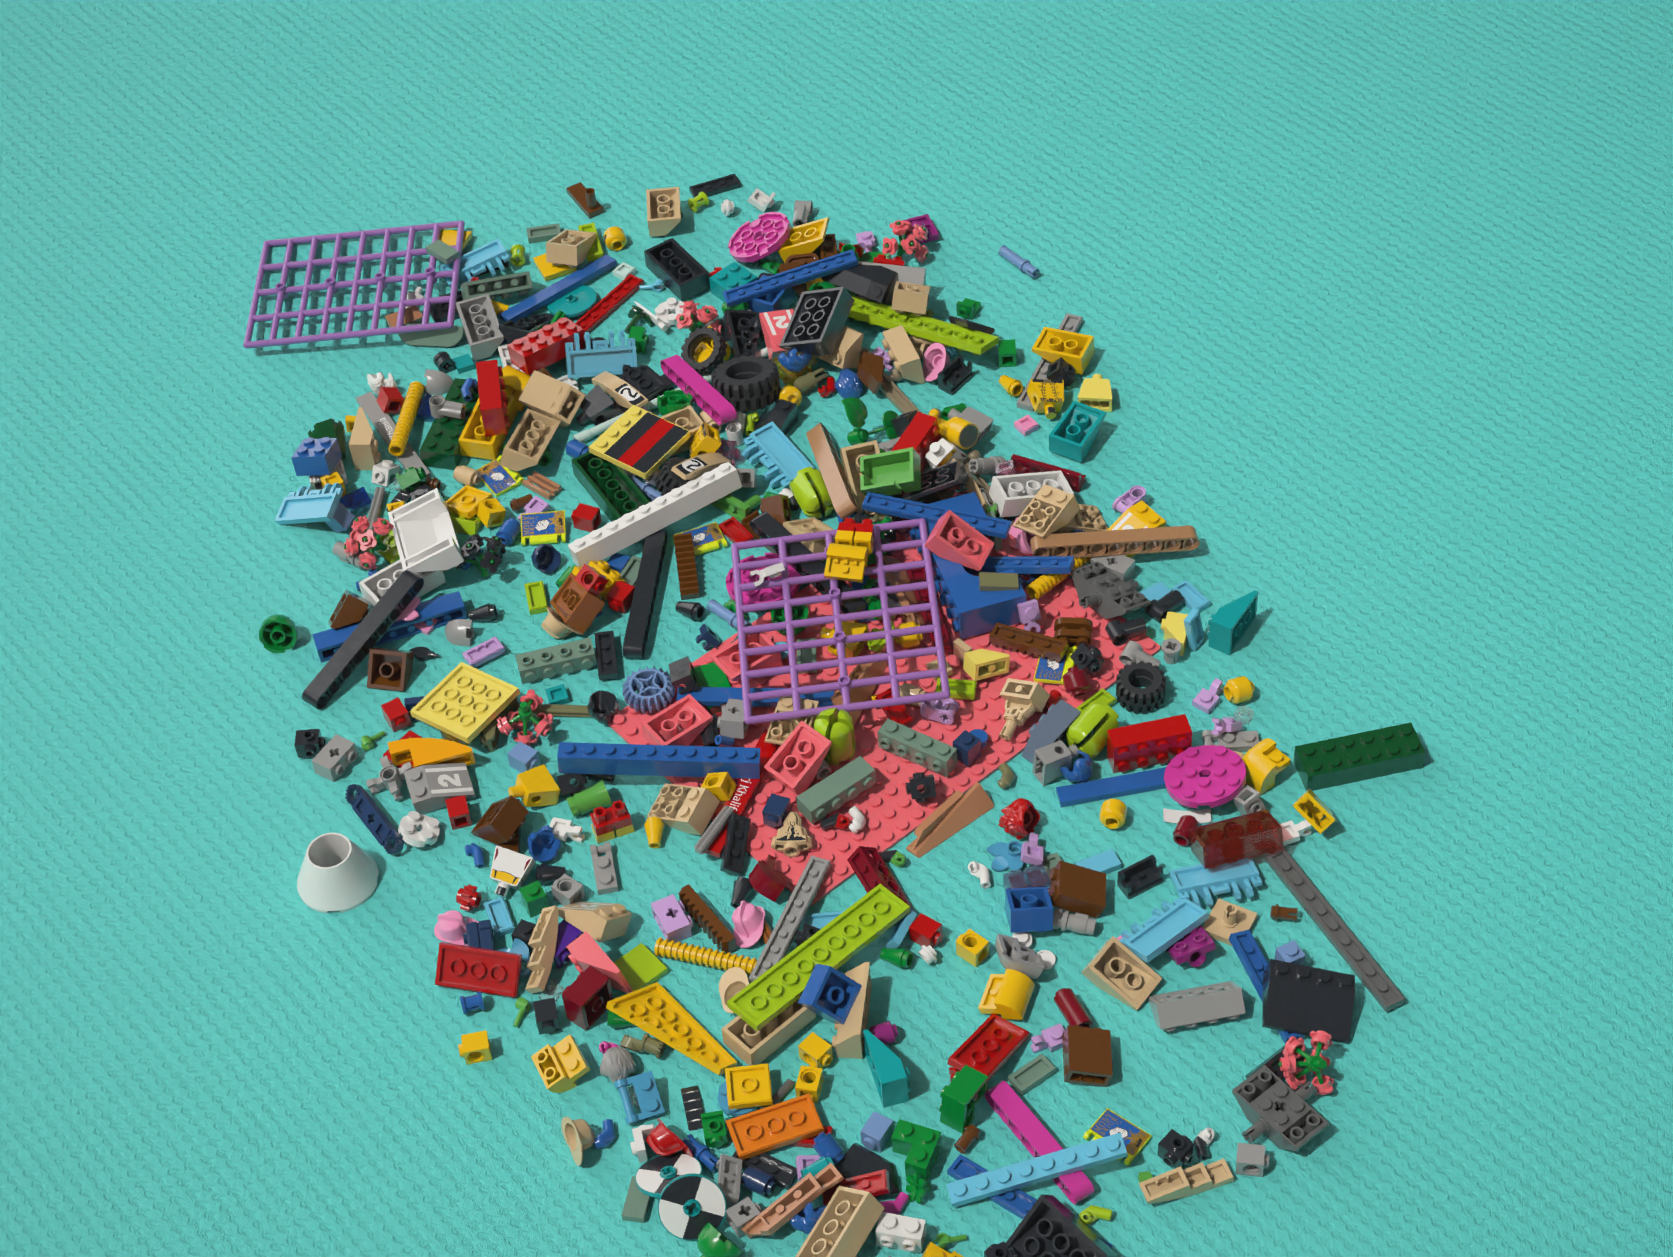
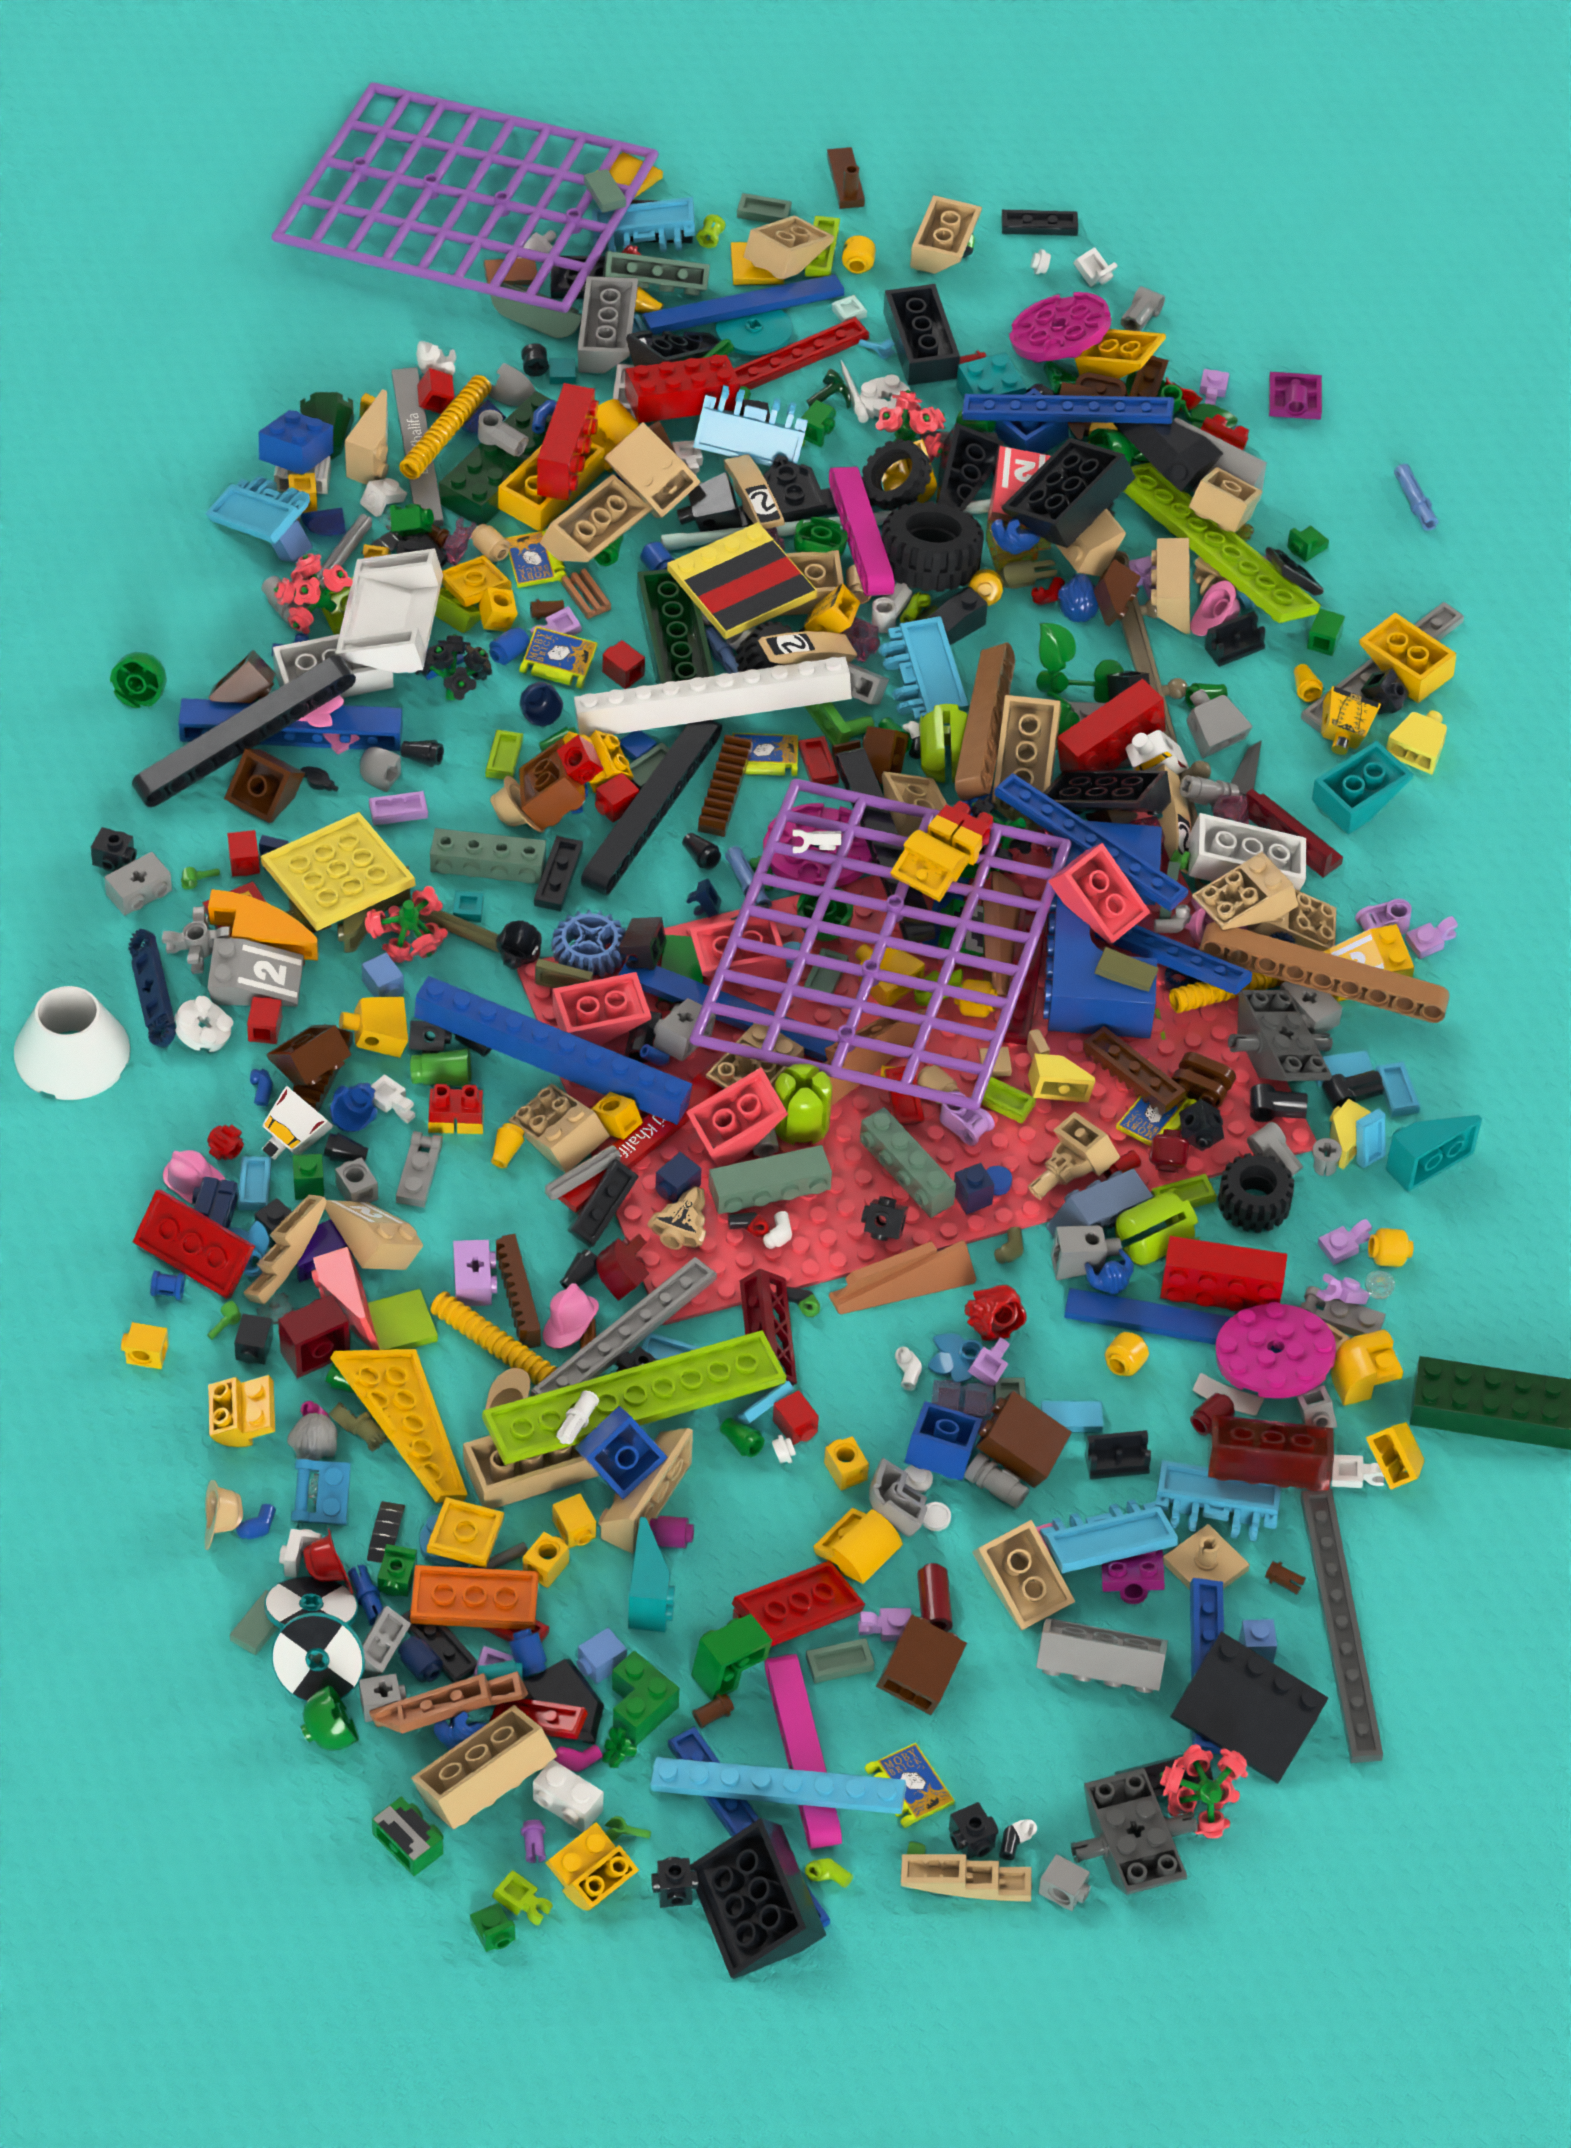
camera: 15 degrees right, 5 degrees up
(446, 484) = (458, 542): none -> clear pink plate
(637, 715) = (559, 975): none -> olive tile
(694, 206) = (994, 238): lime bush -> none
(792, 981) = (577, 1417): none -> white axle
(890, 472) = (1055, 757): bright green piece -> none
(907, 245) = (1264, 413): coral plant -> none
(957, 430) = (1187, 724): yellow piece -> none
(1000, 446) = (1247, 770): none -> dark grey bar
(1007, 547) = (1174, 924): none -> white arm
(1026, 425) = (1299, 751): bright pink tile -> none
(1029, 614) = (1151, 1031): lavender plate -> none
(1164, 504) = (1428, 940): none -> lavender plate

